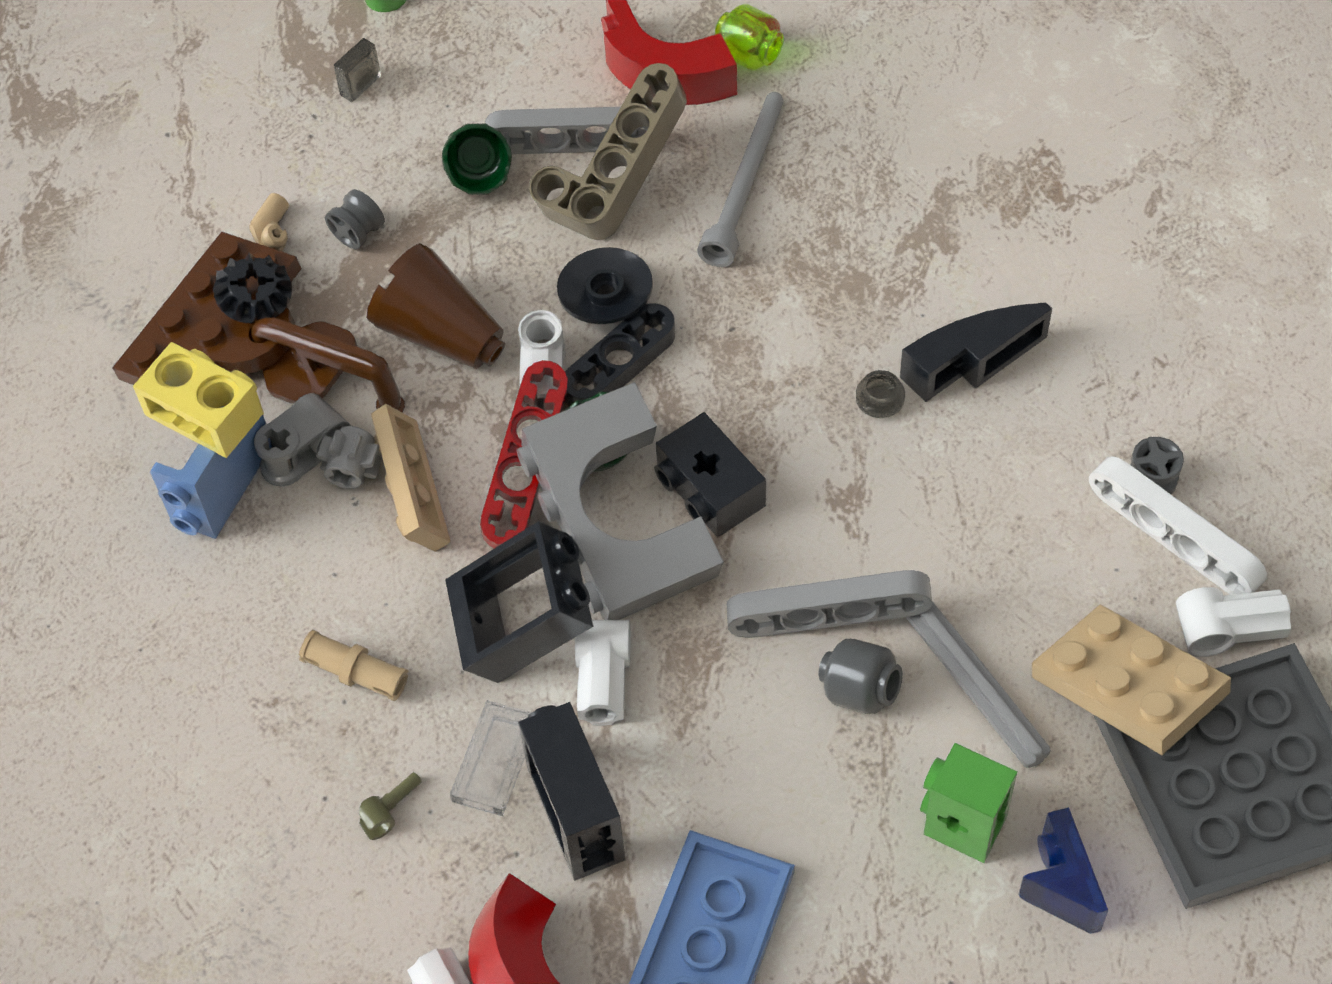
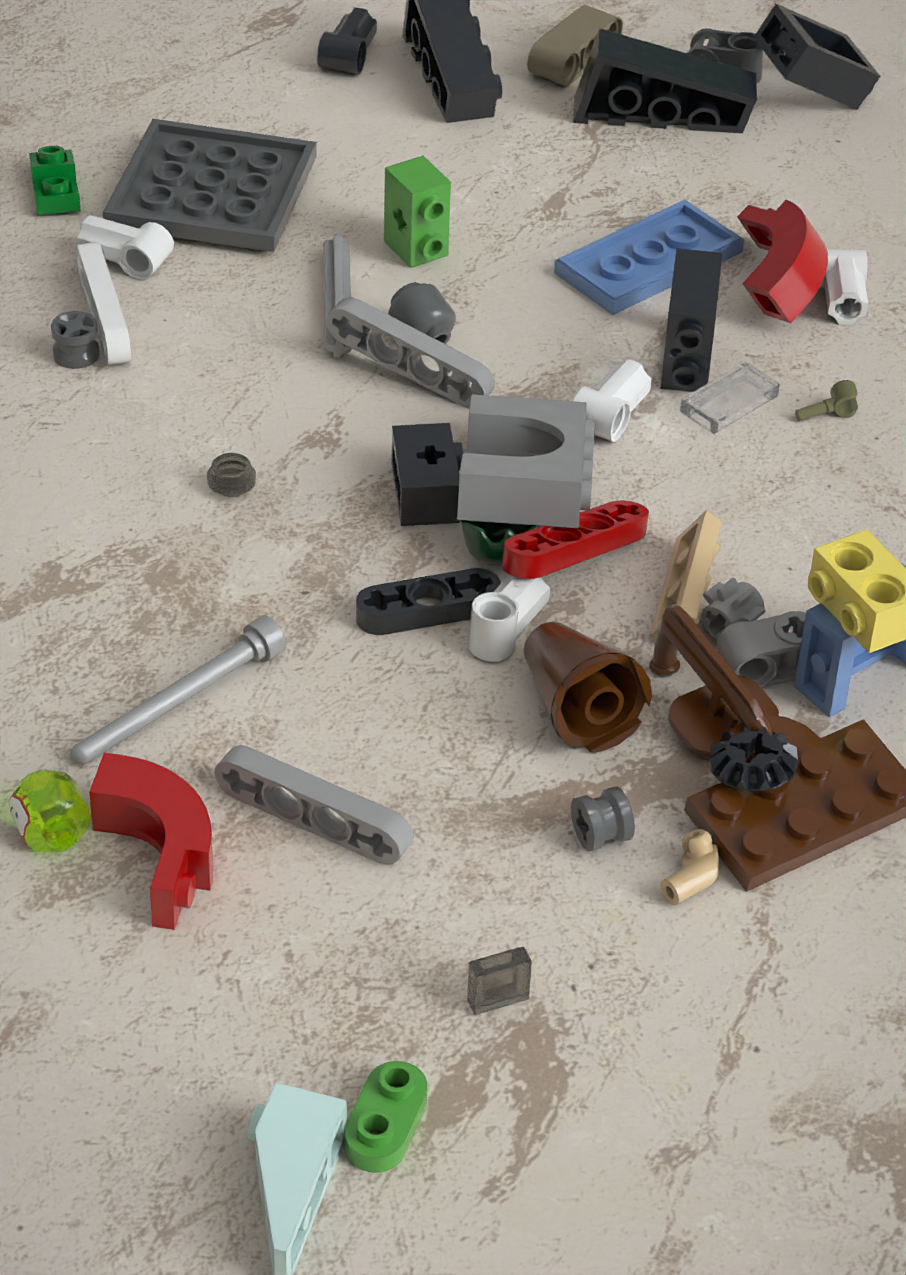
camera: 155 degrees left, 15 degrees down
(353, 665) = (811, 484): tan pin -> none
(476, 608) = (671, 408): black window -> none
(477, 158) = (440, 808): dark green hair -> none
(604, 285) = (399, 644): black dish -> none
(654, 91) = (305, 712): dark tan beam -> none
(973, 347) = (123, 462): black slope -> none
(1069, 883) = (370, 184): clear blue slope -> none
(1131, 678) = (237, 235): tan plate -> none

